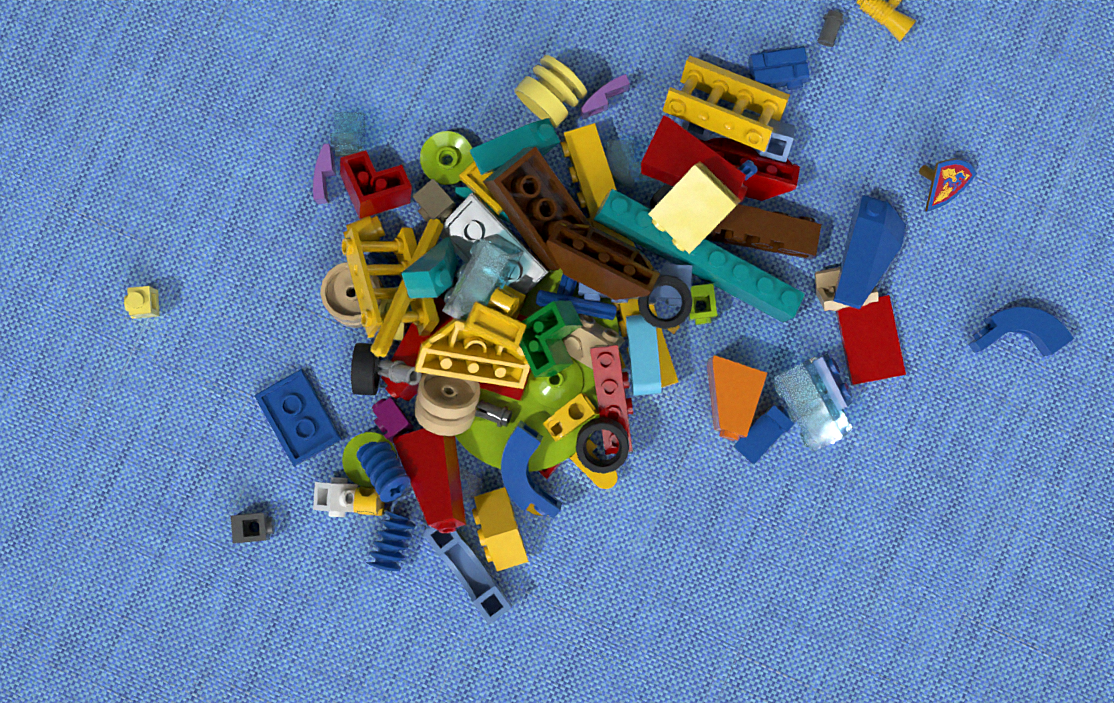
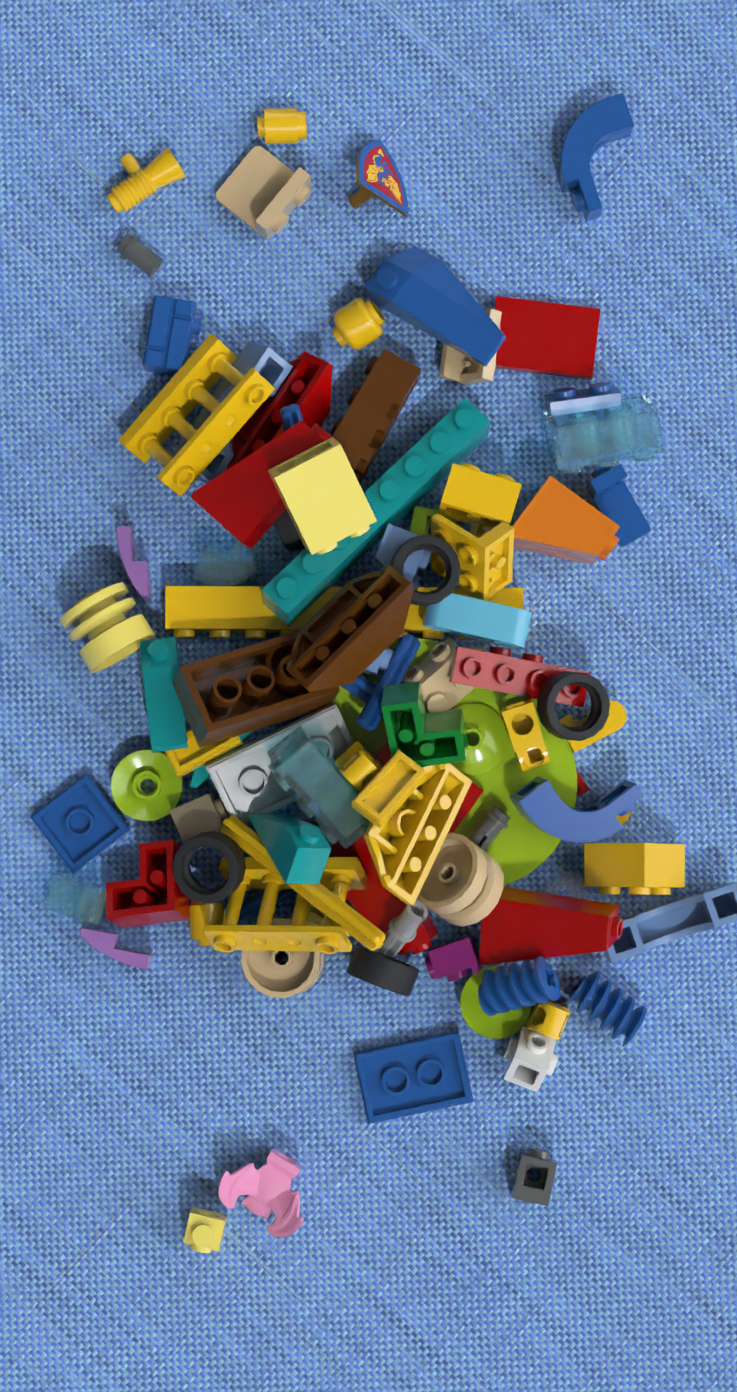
camera: 75 degrees left, 0 degrees up
(183, 337) = (267, 1190): none -> bright pink animal
(386, 205) = (187, 882): none -> black tyre
(405, 121) = (80, 823): none -> blue tile
(685, 345) = (483, 561): none -> yellow bracket
(732, 329) = (479, 498): none -> yellow brick
(834, 200) = (358, 323): none -> yellow head
(908, 102) = (264, 192): none -> tan bracket
(961, 99) = (282, 125): none -> yellow brick

